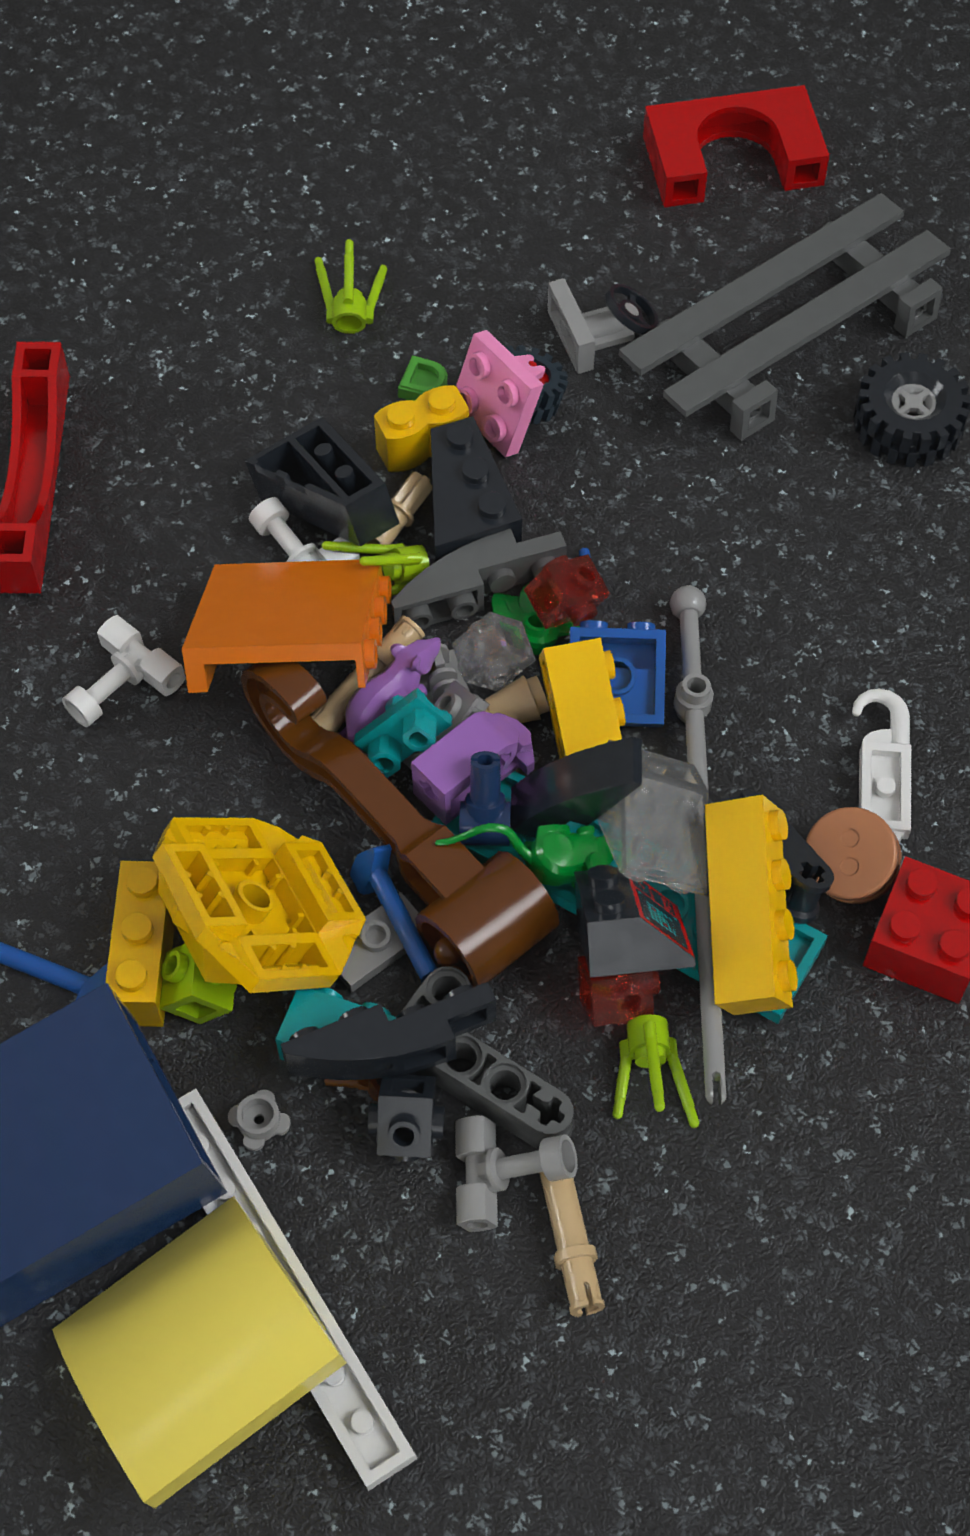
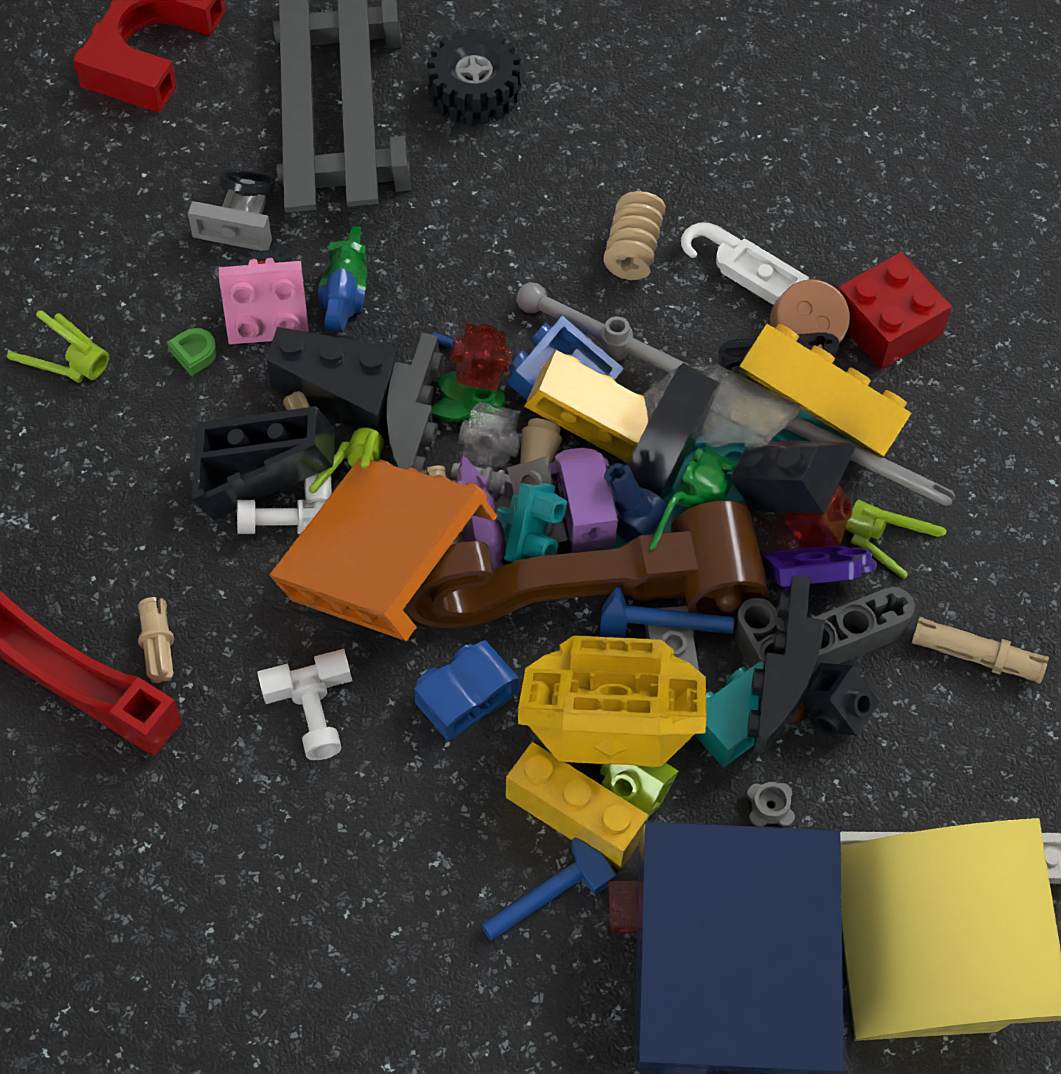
camera: 60 degrees left, 0 degrees up
(103, 526) = (156, 639): none -> tan axle
(205, 785) = (465, 689): none -> blue brick
(406, 426) = (246, 370): yellow brick -> none
(491, 1170) = (906, 674): light grey bar -> none
(547, 1013) = (817, 563): none -> dark purple plate
(578, 447) = (344, 282): none -> animal
(830, 642) = (634, 235): none -> tan piece

